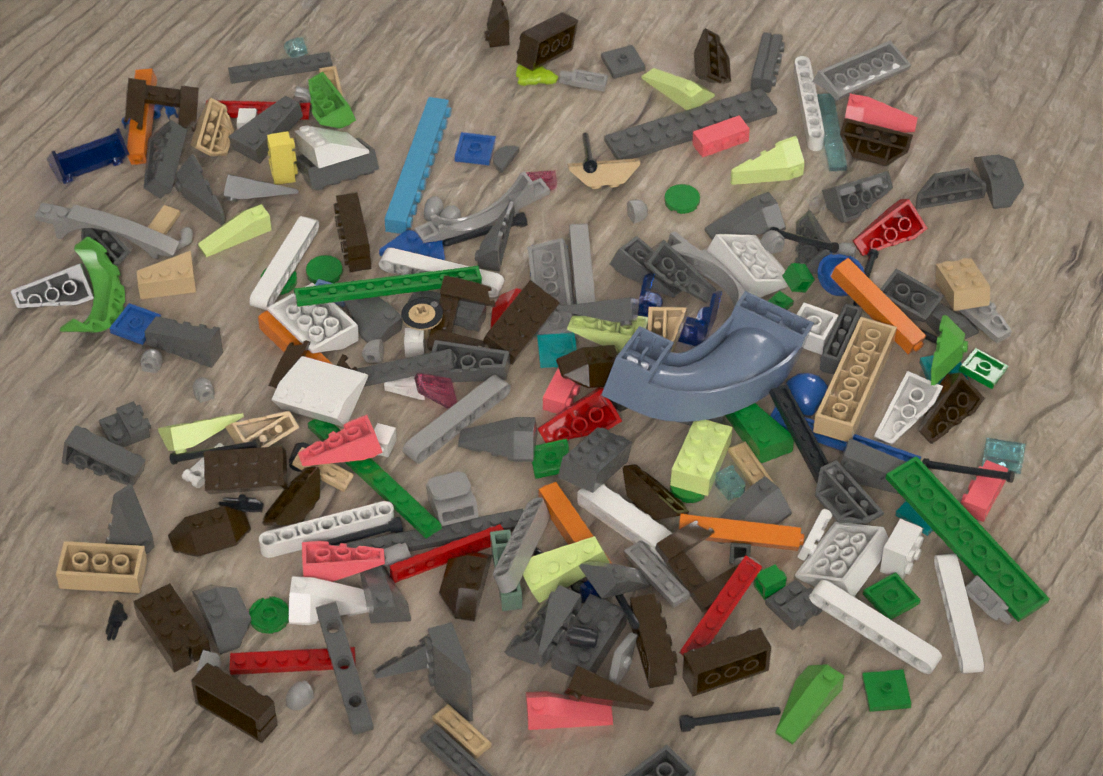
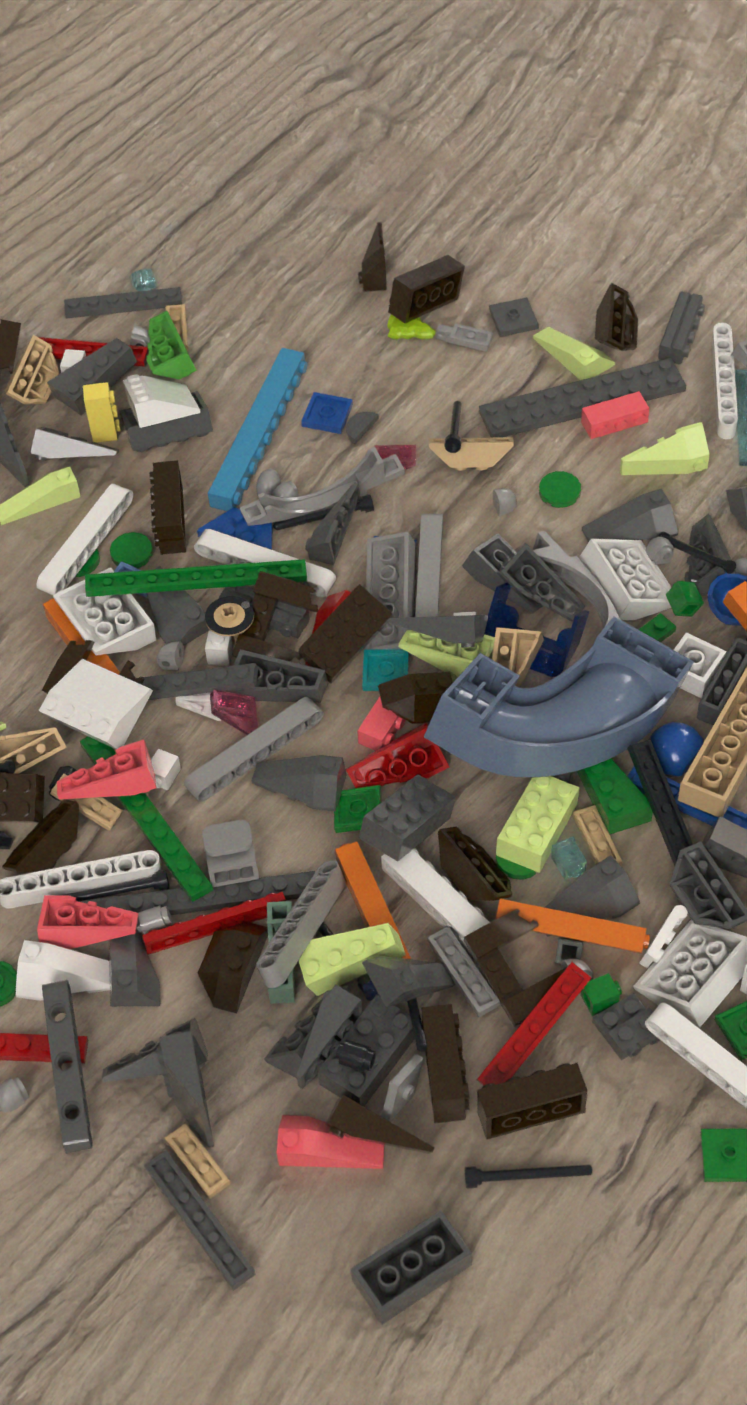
camera: 10 degrees right, 5 degrees up
(808, 699) = (630, 1156): bright green wedge -> none

